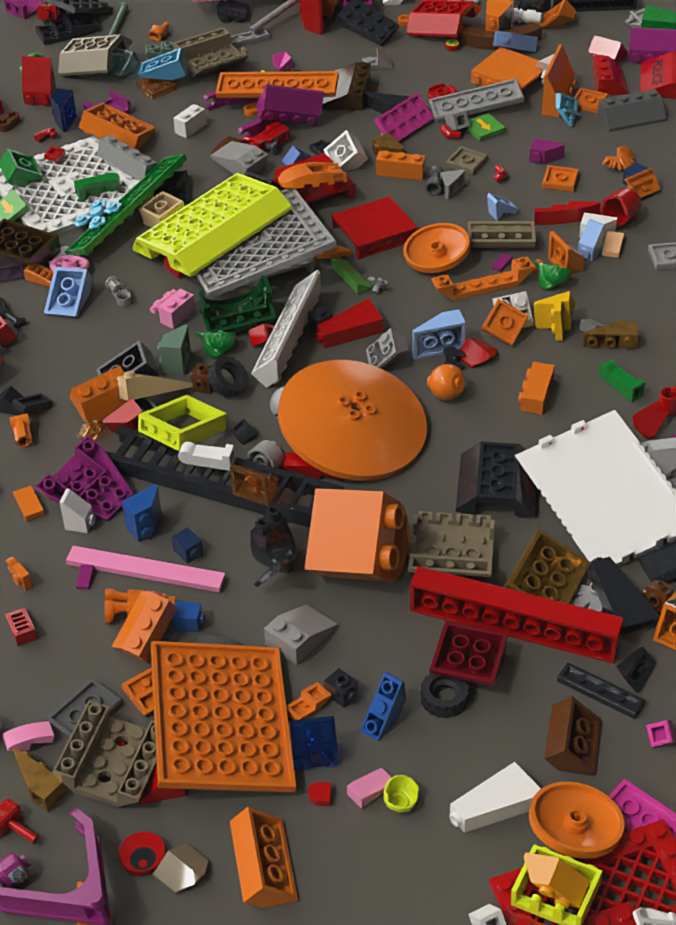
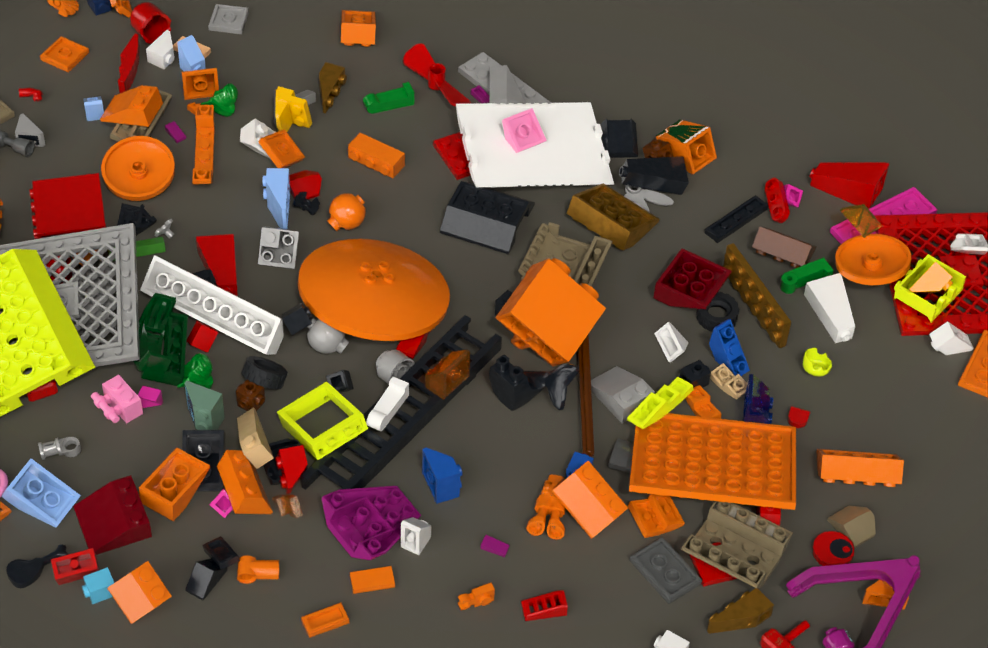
camera: 80 degrees left, 5 degrees up
(23, 736) = (689, 614): bright pink slope -> none
(59, 339) = (113, 516): none -> dark red slope
(90, 355) = (173, 484): none -> orange slope
(147, 569) = (500, 496): bright pink tile -> none
(183, 318) = (150, 397): none -> dark pink slope
(187, 545) = (487, 453): dark blue brick -> none
(281, 658) = (659, 404): none -> neon yellow slope
(282, 371) = (297, 318): none -> black brick
(293, 601) = (586, 398): none -> reddish brown axle
(350, 721) = (728, 382): none -> tan slope
(368, 787) = (800, 383): bright pink slope -> none
(381, 265) = (135, 215): none -> black slope
(388, 662) = (671, 341): none -> white slope
(472, 717) = (757, 296): none -> pearl gold plate
(499, 222) = (134, 106): none -> orange slope
(516, 613) = (654, 242): red brick -> none
(534, 763) = (800, 276): none -> green leg
(546, 151) = (16, 50): magenta slope -> none
(610, 470) = (523, 130): none -> bright pink slope
(631, 798) = (861, 219): none -> clear yellow slope
(636, 668) = (721, 193): black slope -> none
(643, 718) = (777, 200): none -> red plate

